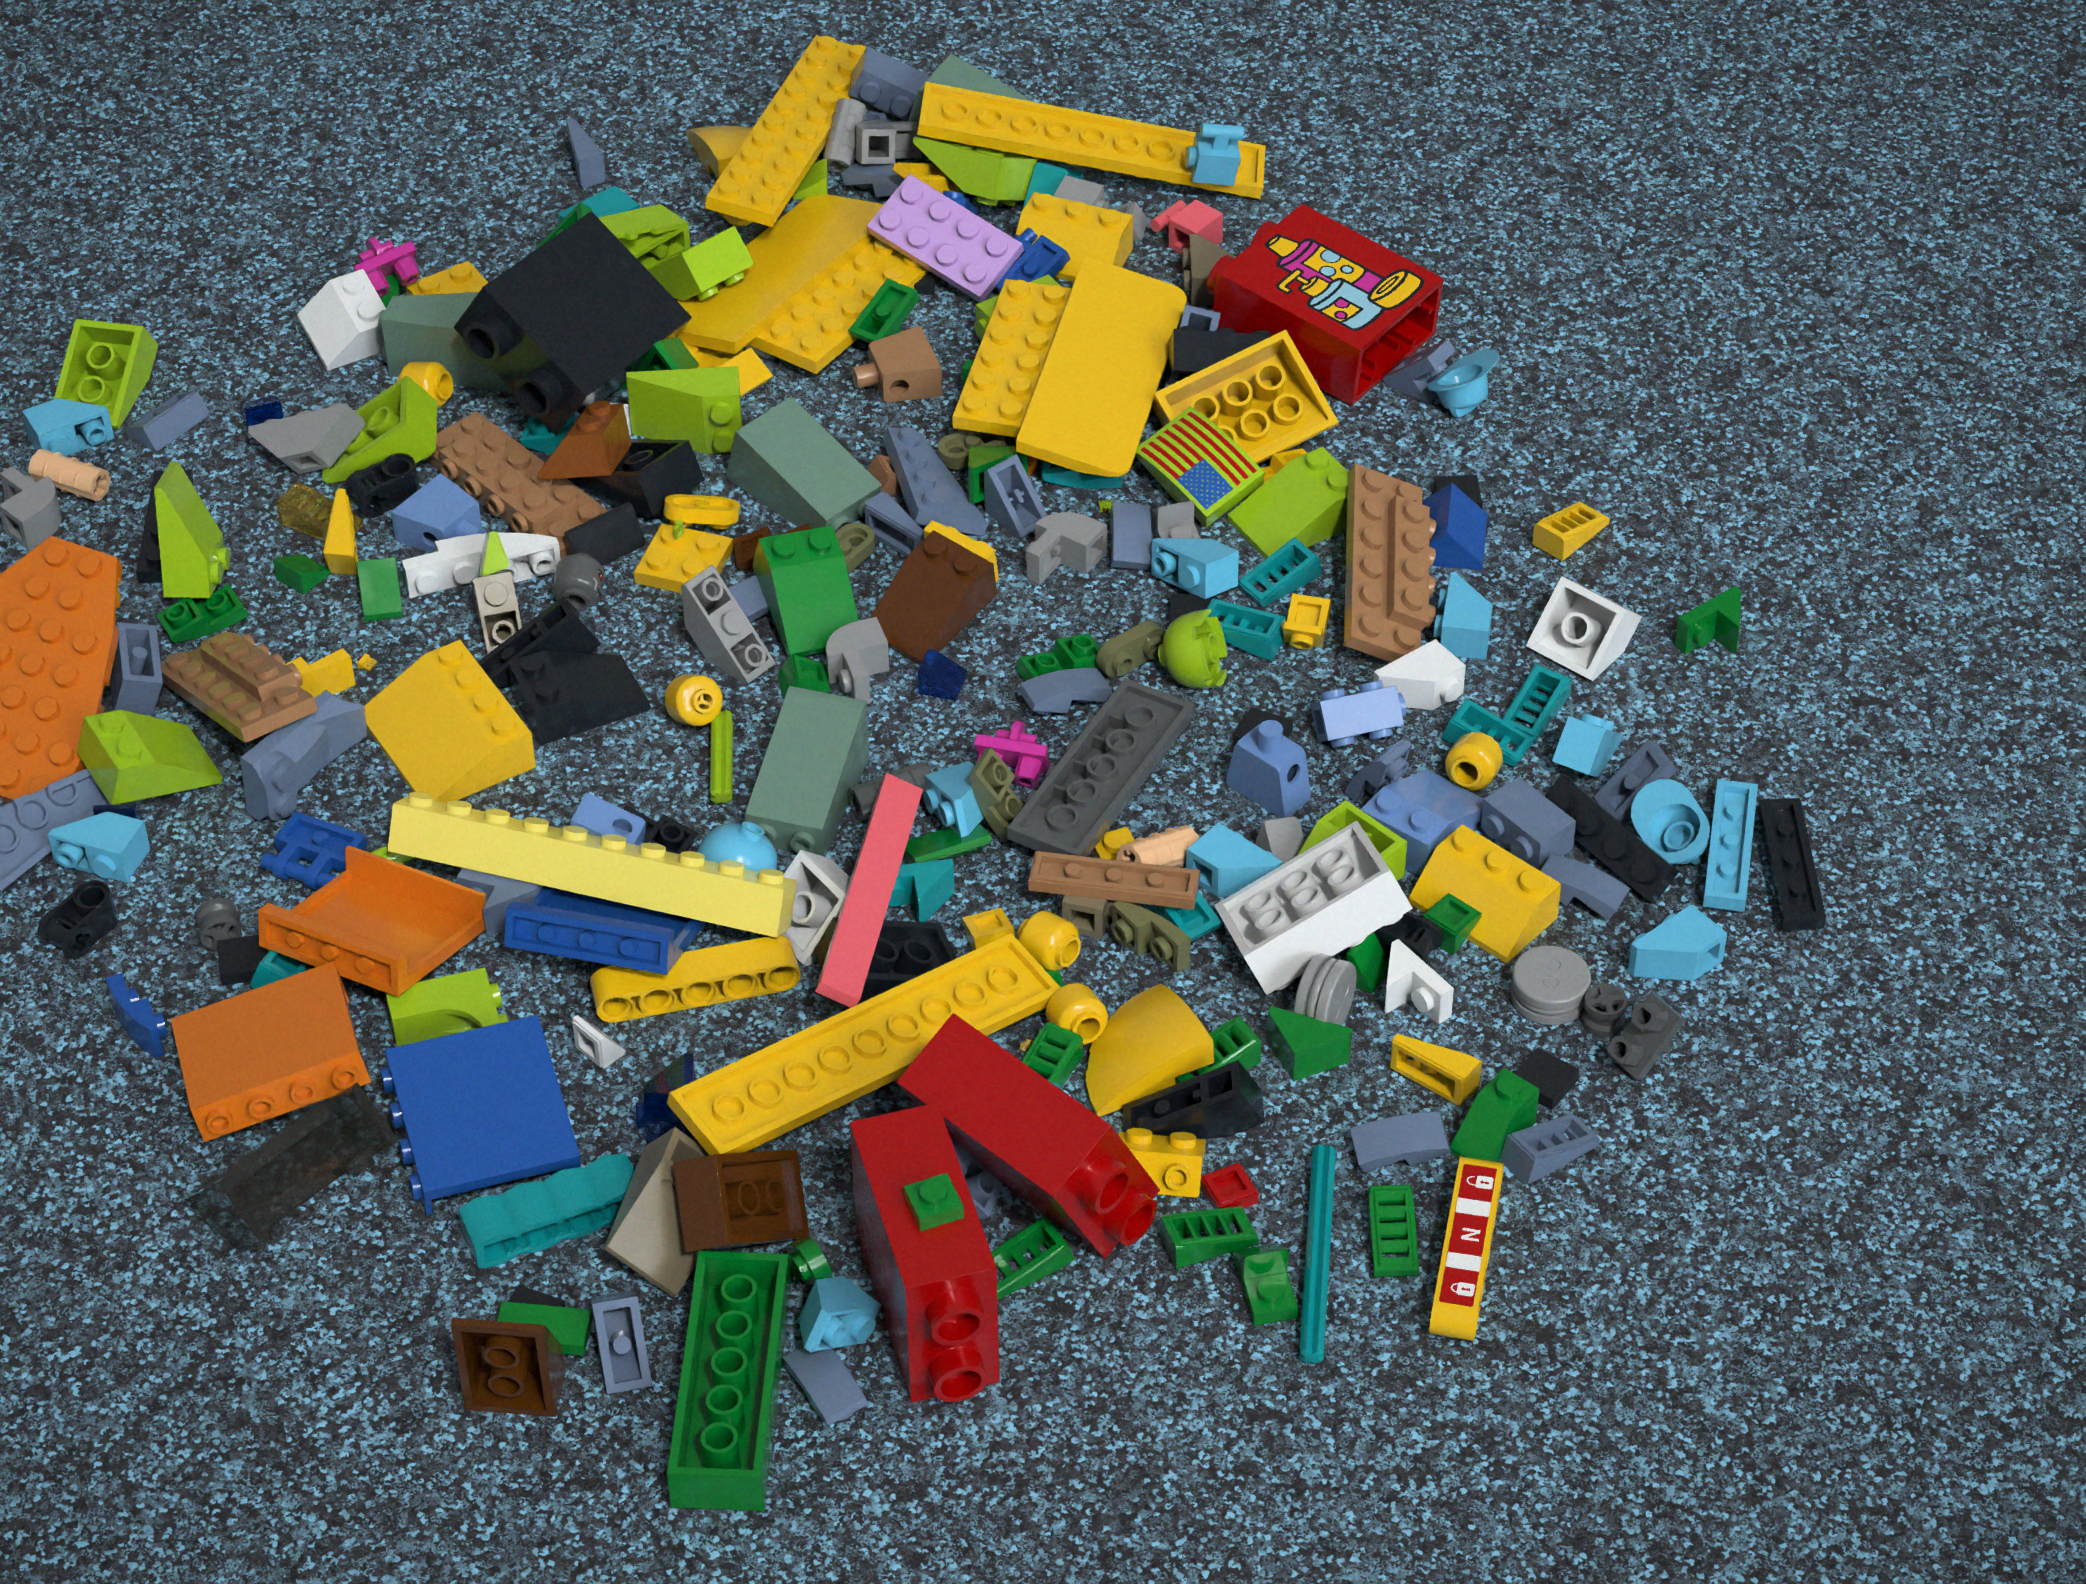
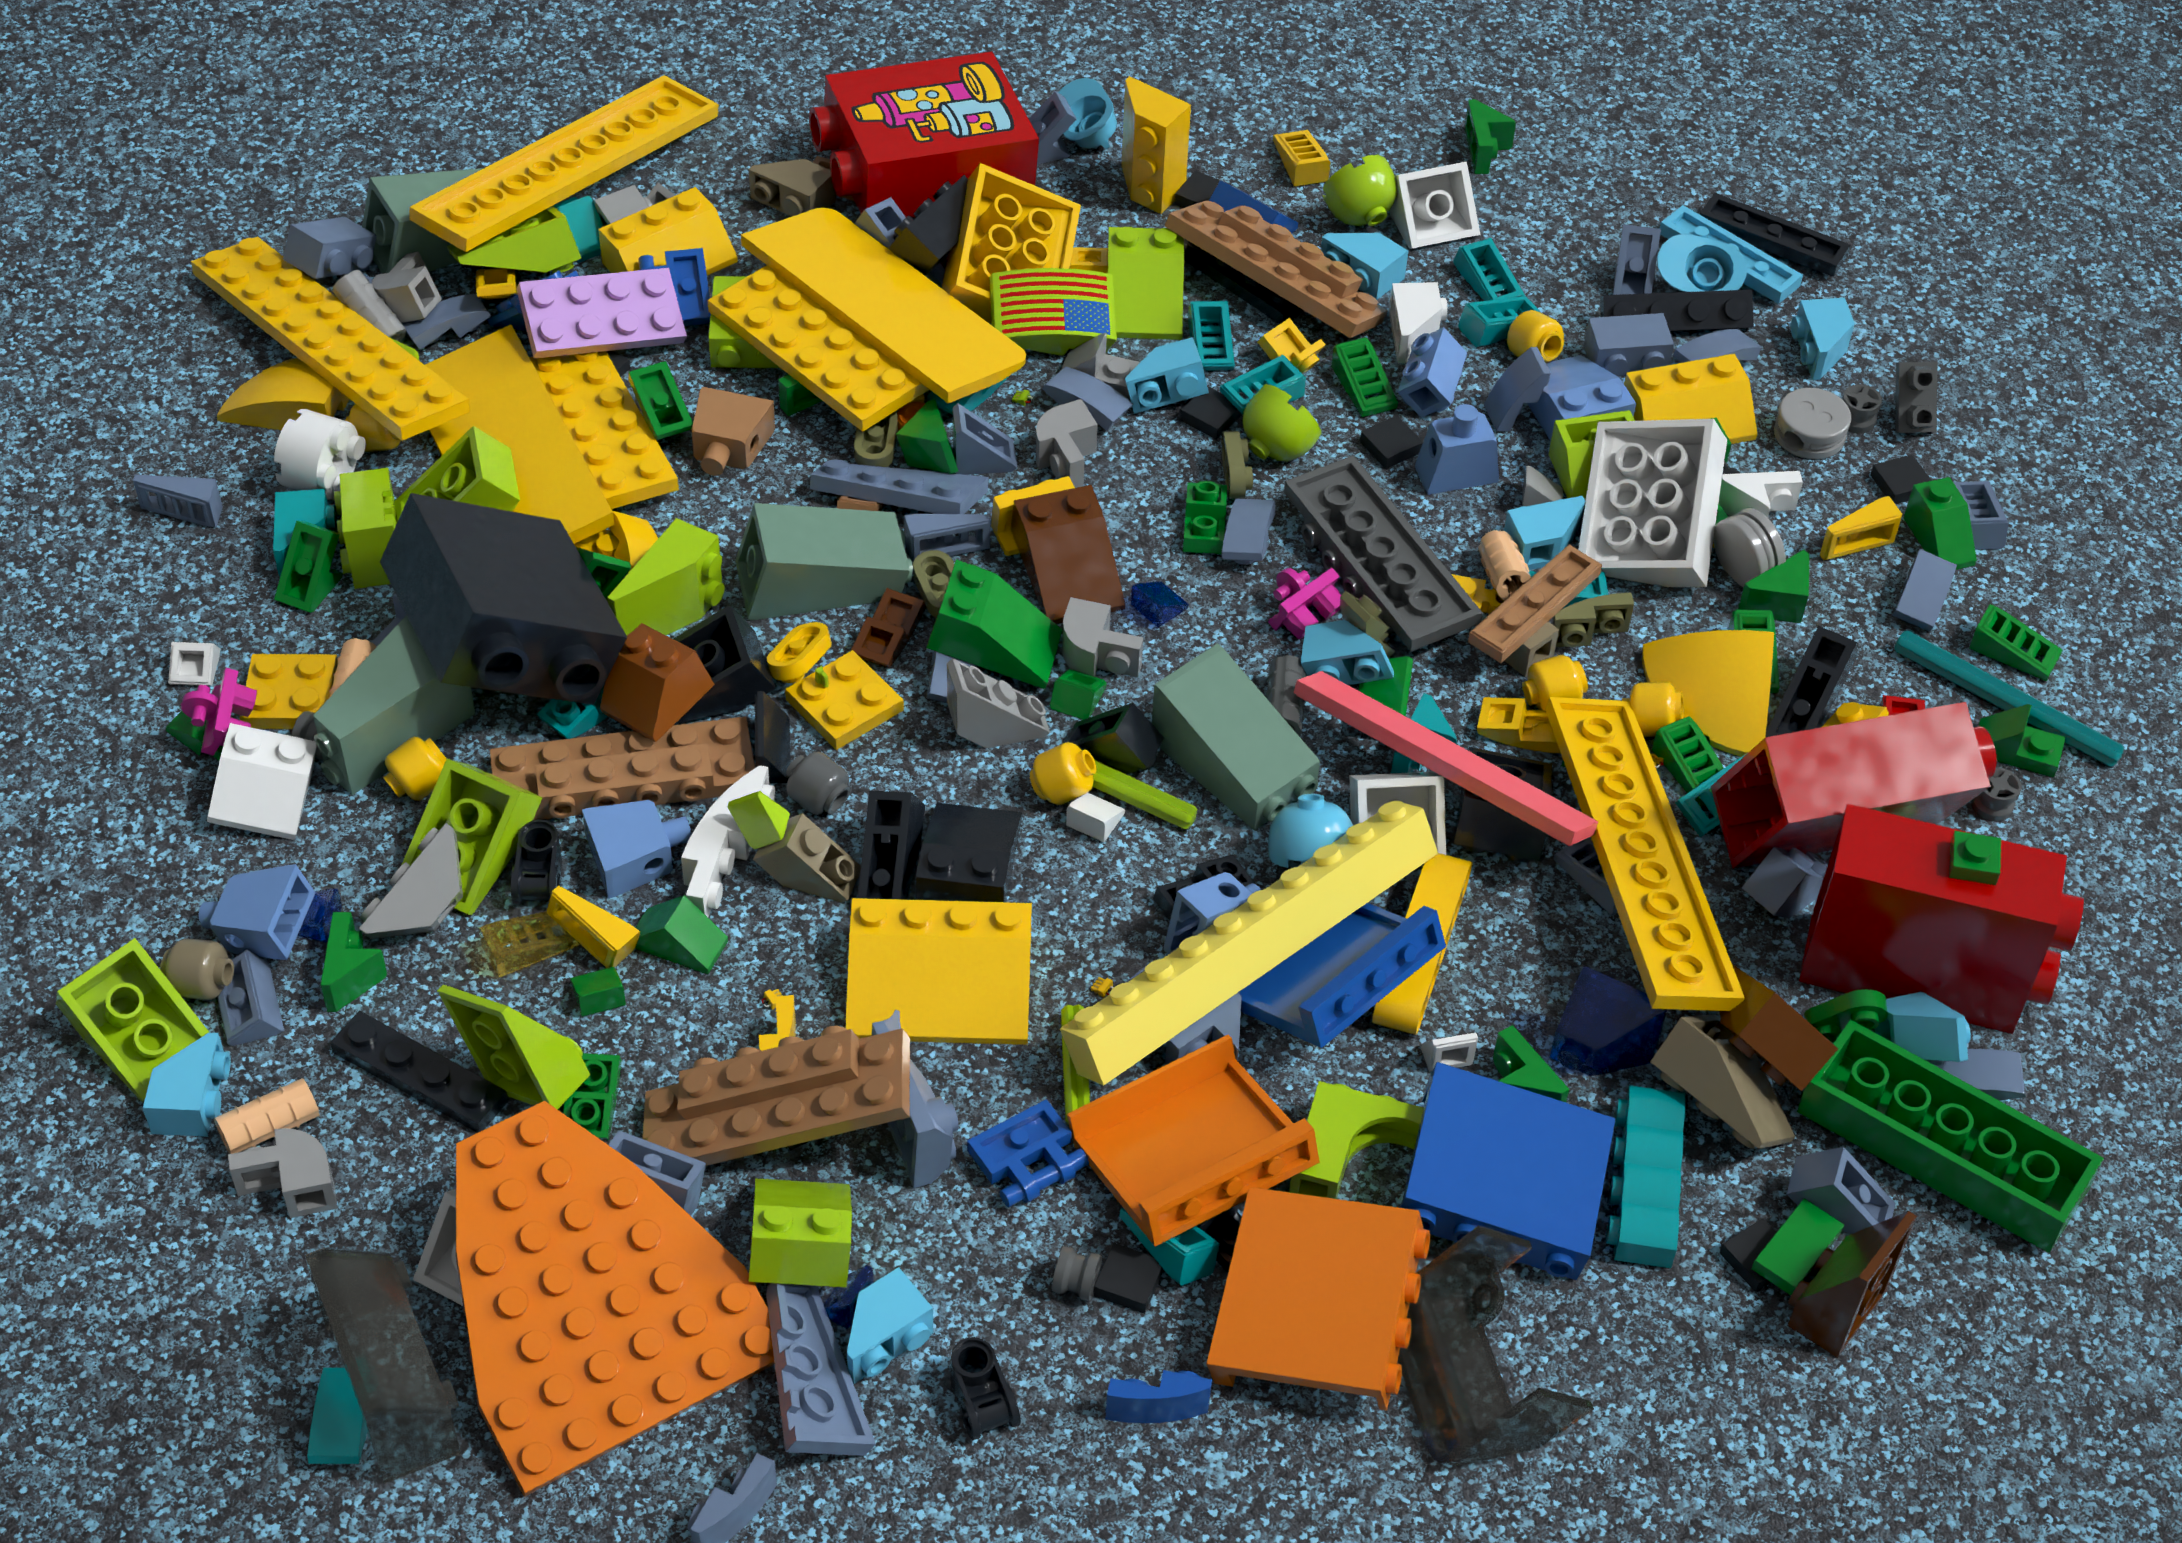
camera: 60 degrees left, 5 degrees up
(162, 377) = (197, 968): none -> dark tan head
(221, 441) = (348, 966): none -> green slope
(233, 380) = (260, 911): none -> medium blue torso
(441, 242) = (193, 663): none -> white slope
(598, 1099) = (1524, 1067): none -> green slope
(671, 179) = (317, 451): none -> white brick
(679, 742) = (1093, 816): none -> white slope
(755, 718) = (1119, 739): none -> black slope
(1175, 1272) = (1999, 799): none -> dark grey wheel
(1189, 220) = (726, 169): coral brick -> none
(1215, 154) = (677, 100): medium azure brick -> none
(1329, 660) = (1357, 356): none -> green slope
(1437, 421) = (1154, 144): none -> yellow slope
(1466, 1249) = (2064, 609): beam -> none
(1534, 571) = (1362, 193): none -> lime cylinder
(1587, 744) = (1568, 267): medium azure slope -> none

